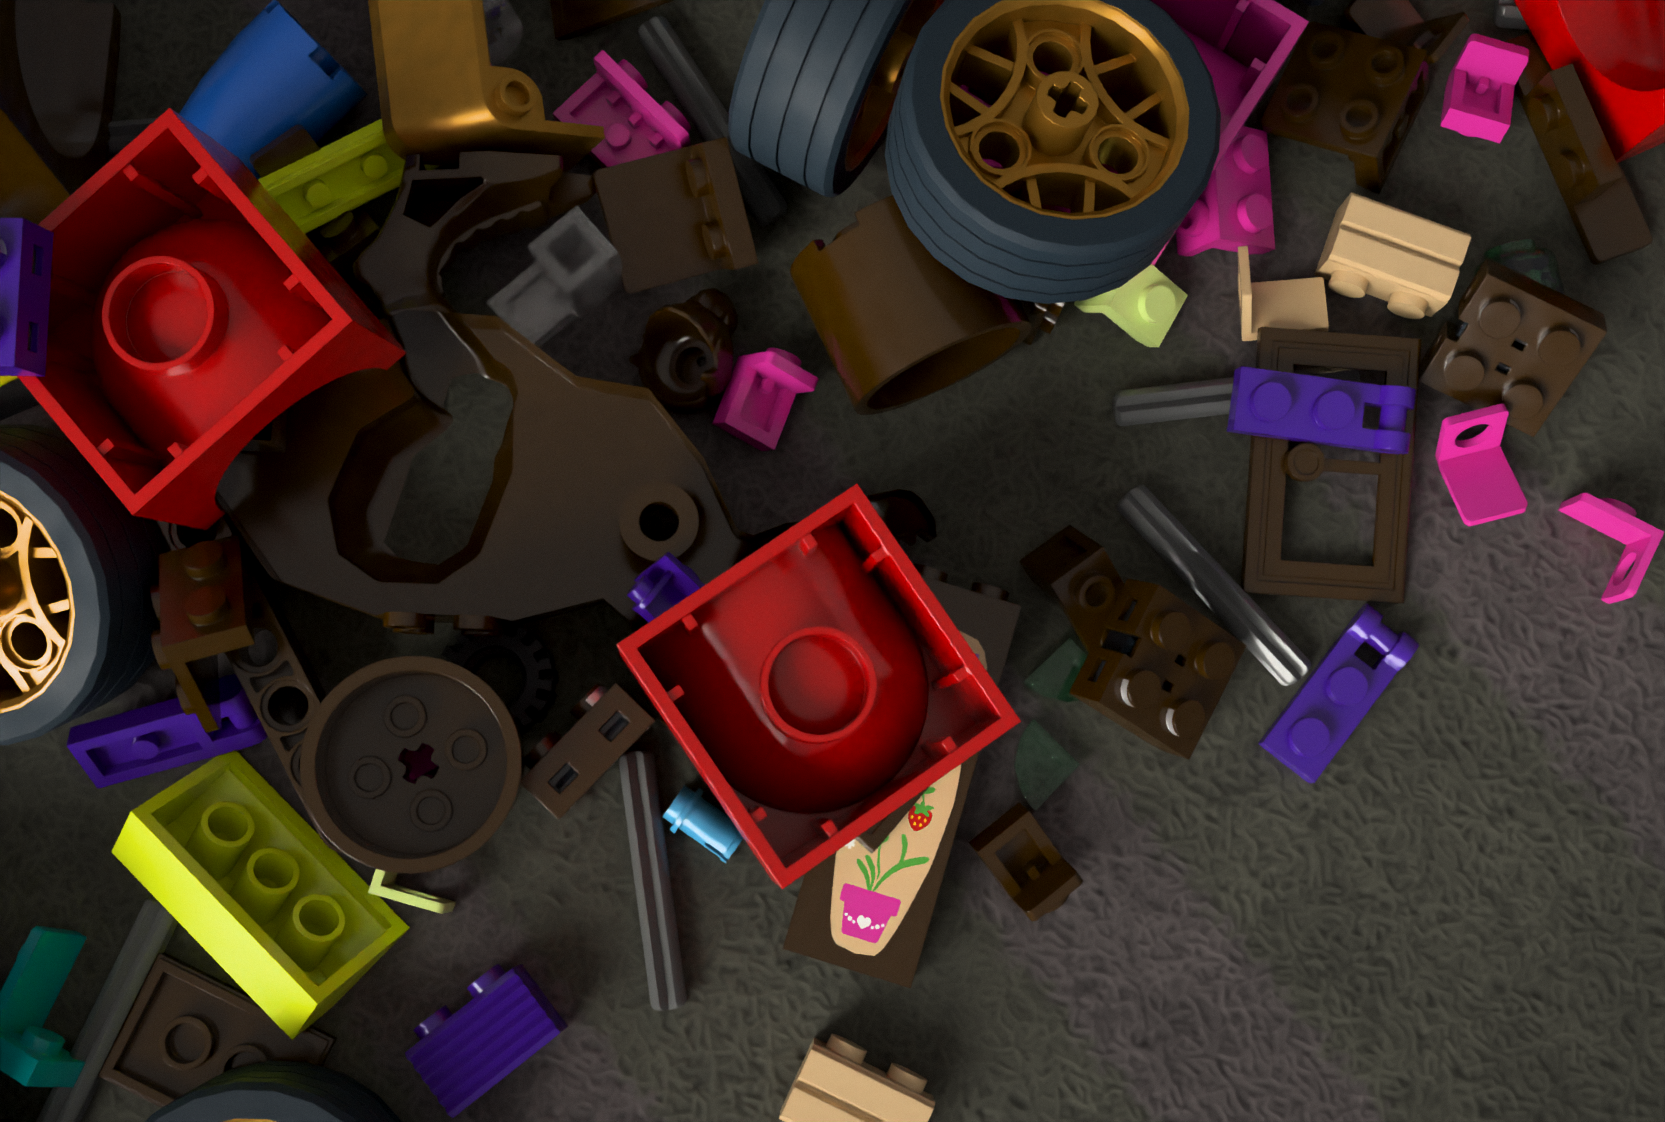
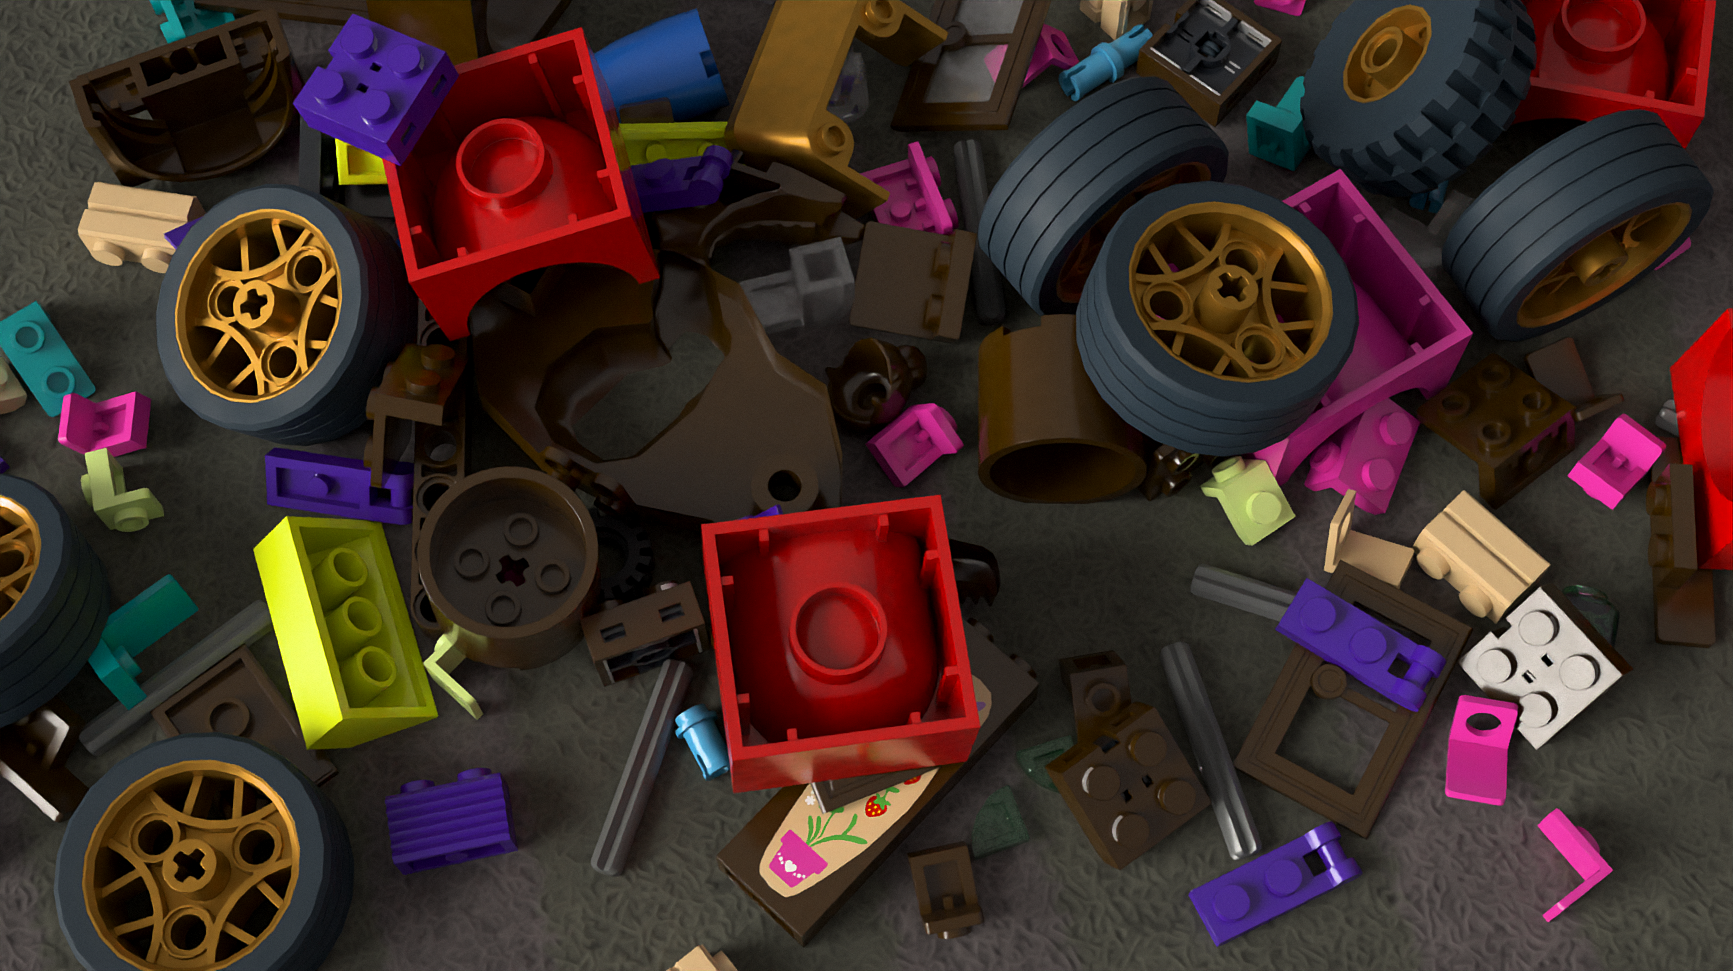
camera: 30 degrees right, 15 degrees down
(368, 220) = (682, 181): none -> dark purple plate

